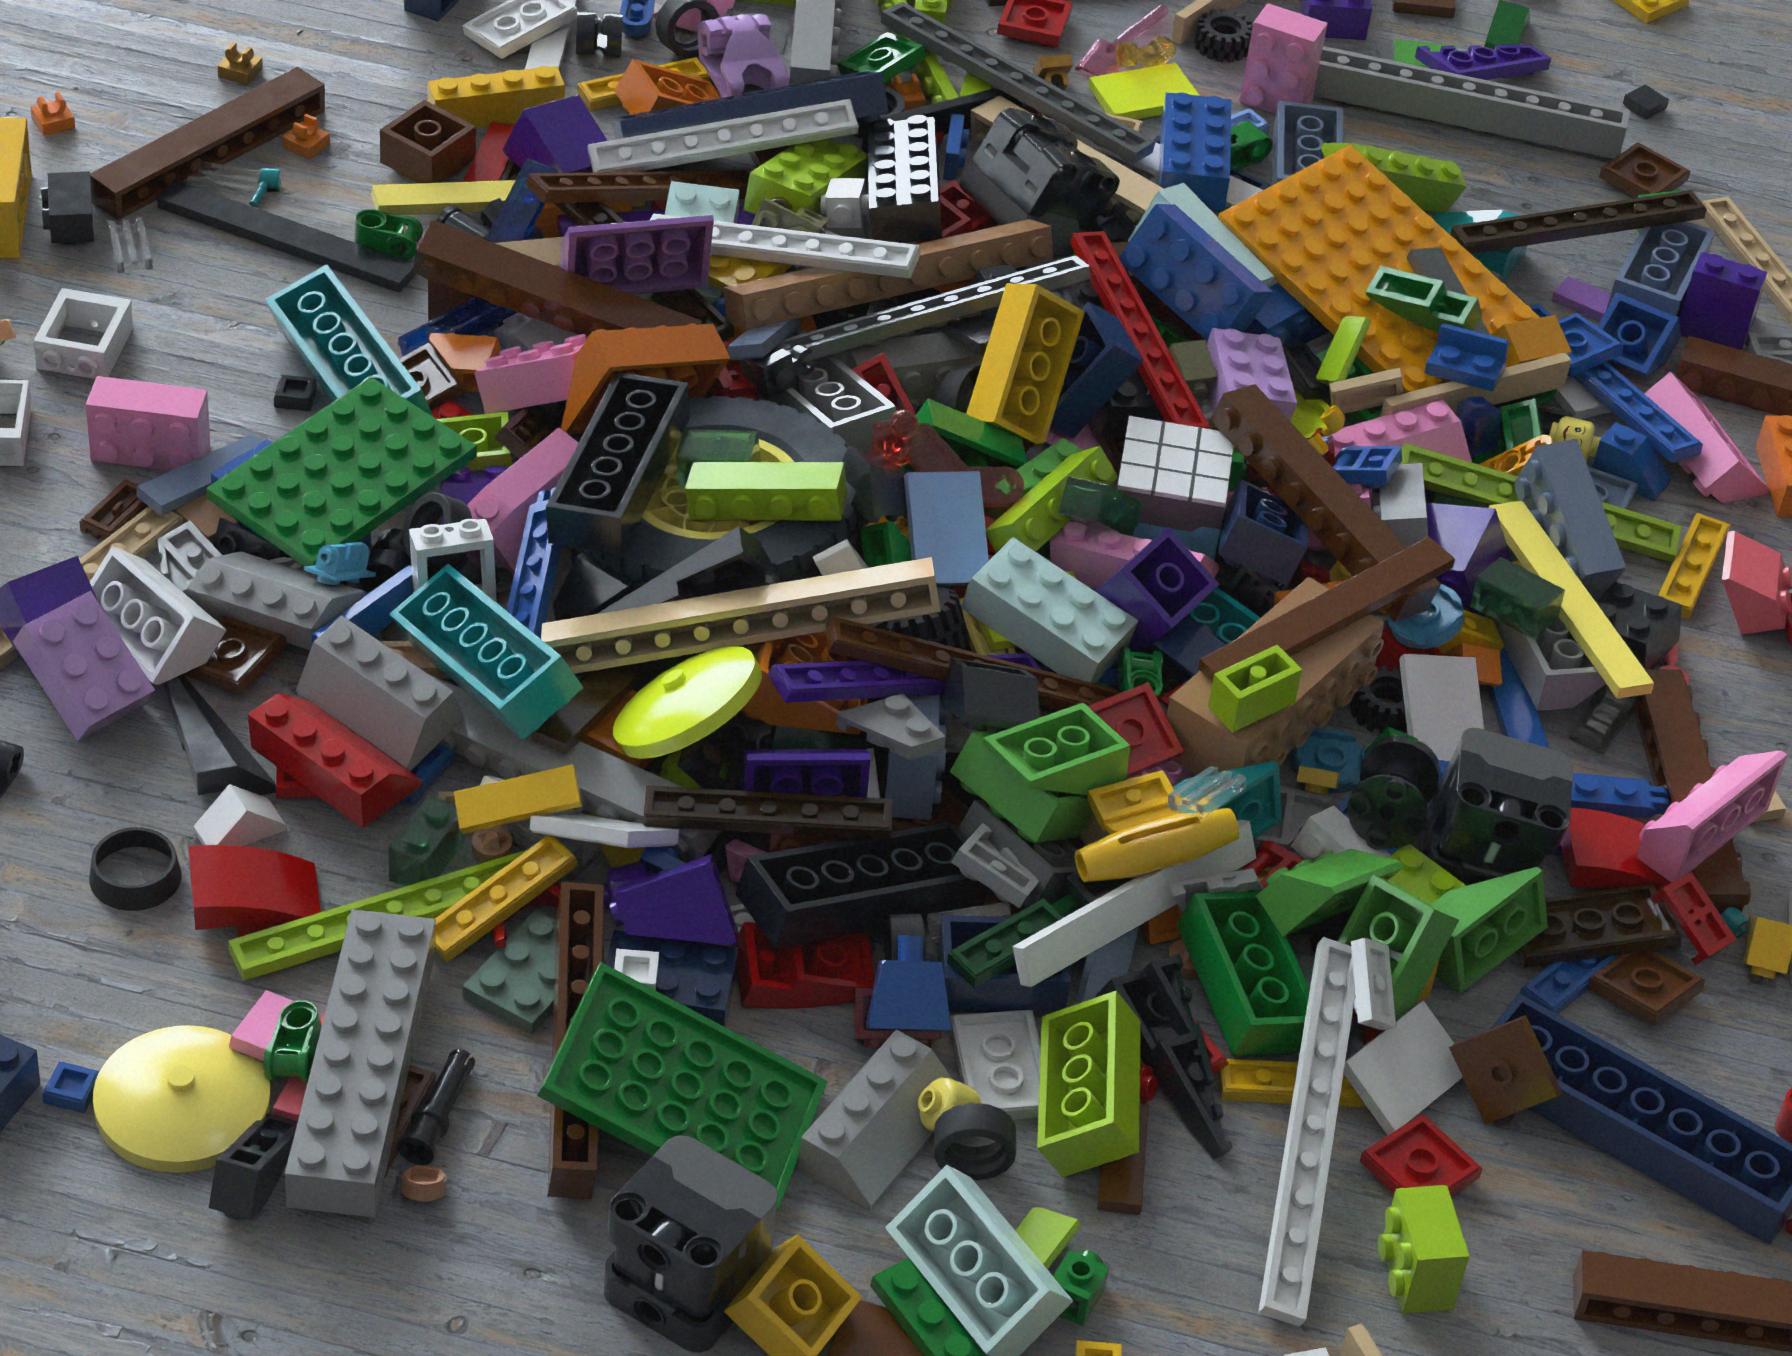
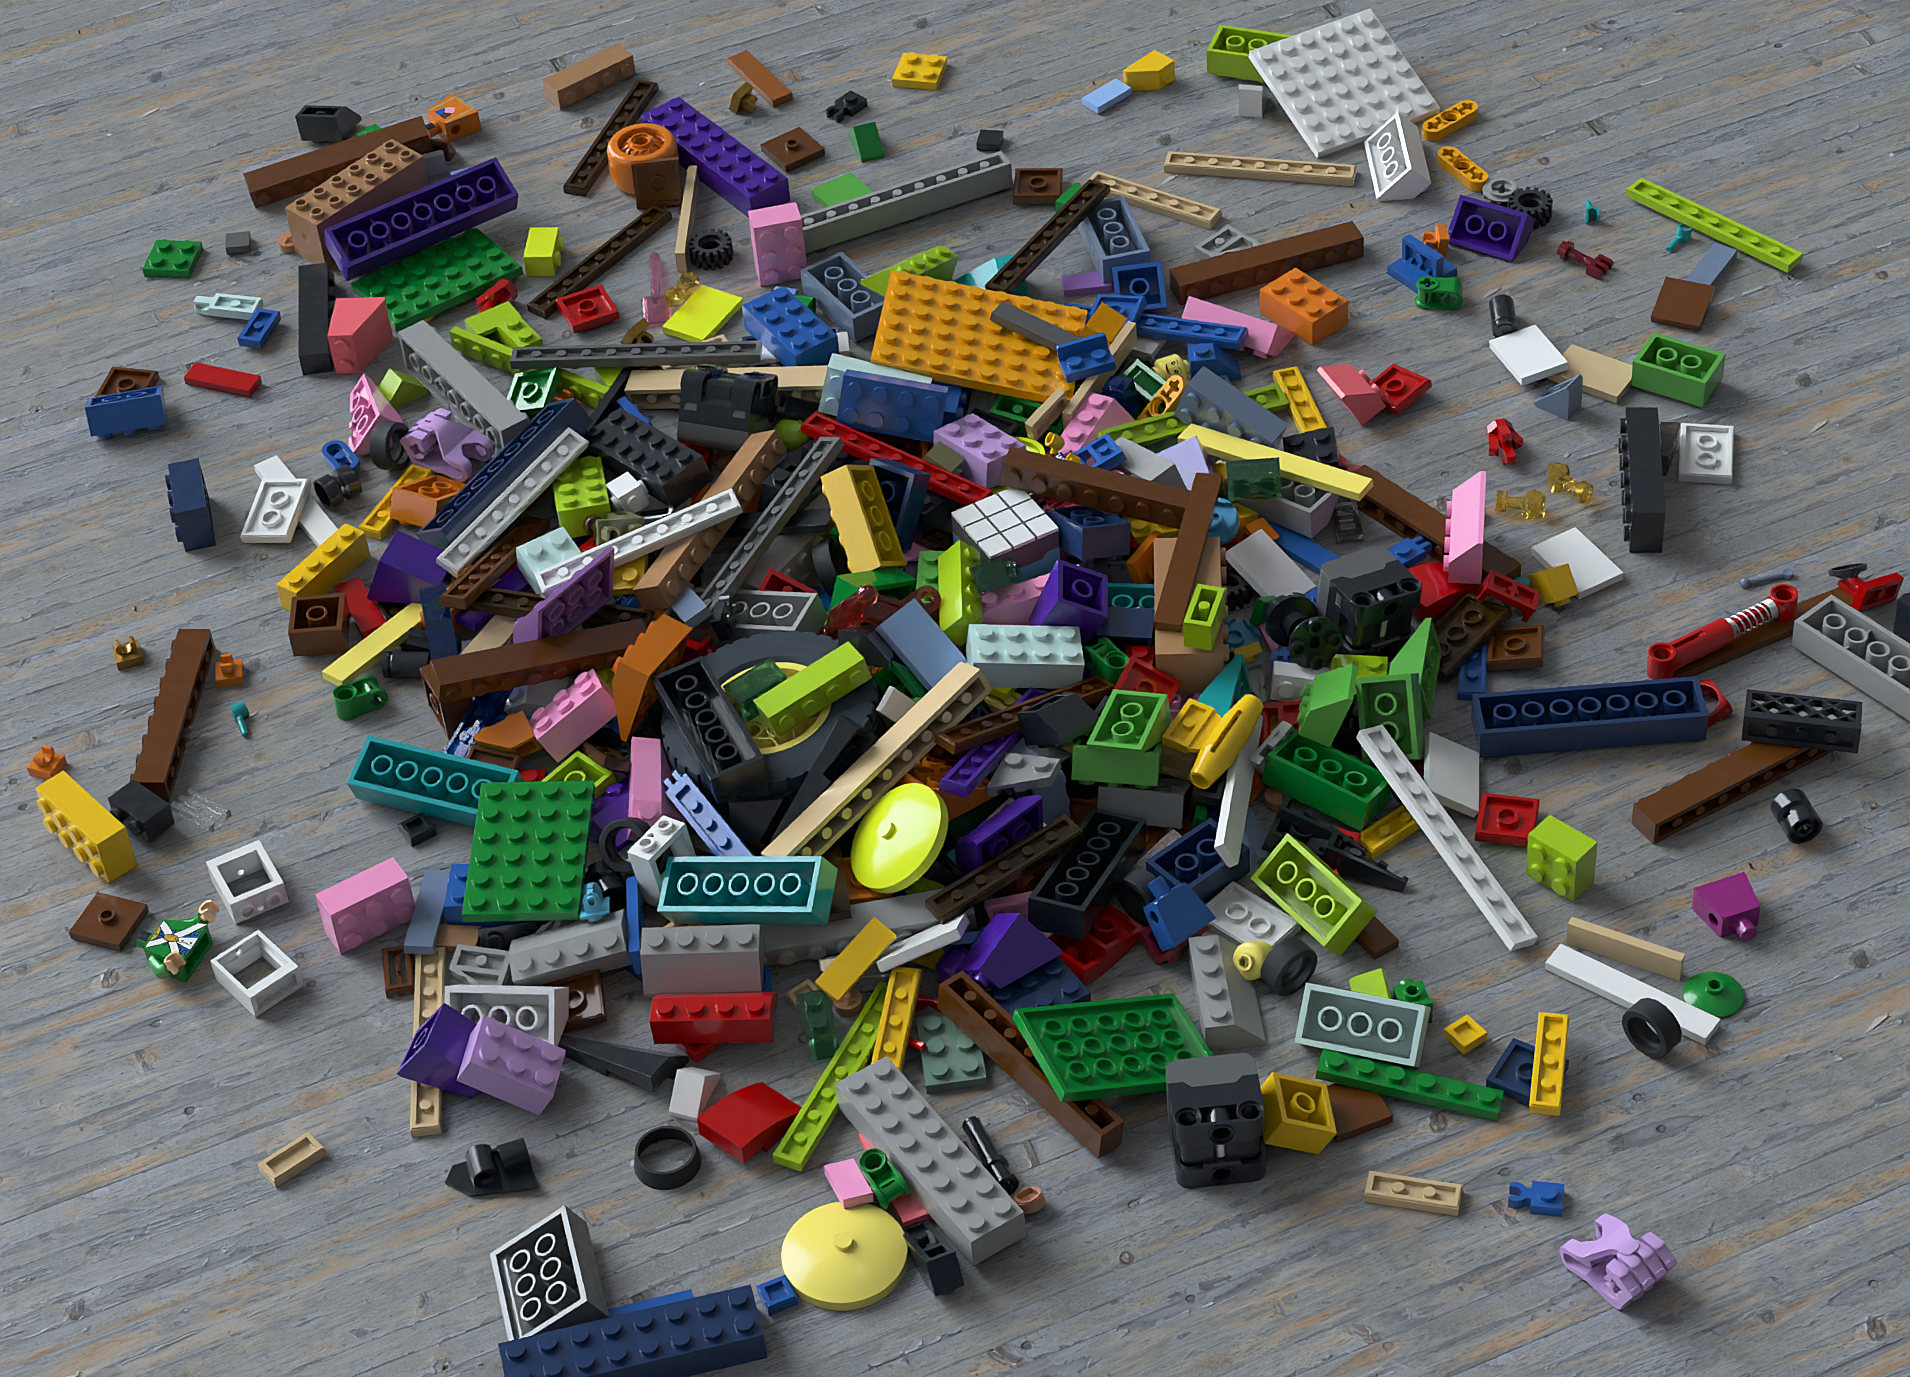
camera: 30 degrees left, 0 degrees up
(286, 235) = (291, 740): black tile -> none
(638, 965) = (1028, 998): white plate -> none
(993, 950) = (1198, 850): dark green tile -> none
(995, 869) = (1149, 815): light grey wing -> none
(1207, 791) = (1224, 684): clear tile -> none
(1343, 349) = (1013, 398): lime slope -> none
(1373, 984) = (1399, 731): white plate -> none
(1423, 300) = (1029, 339): green slope -> none
(1484, 62) = (880, 173): dark purple wing -> none
(1505, 1070) = (1507, 738): reddish brown plate -> none
(1721, 301) = (1170, 235): dark purple slope -> none

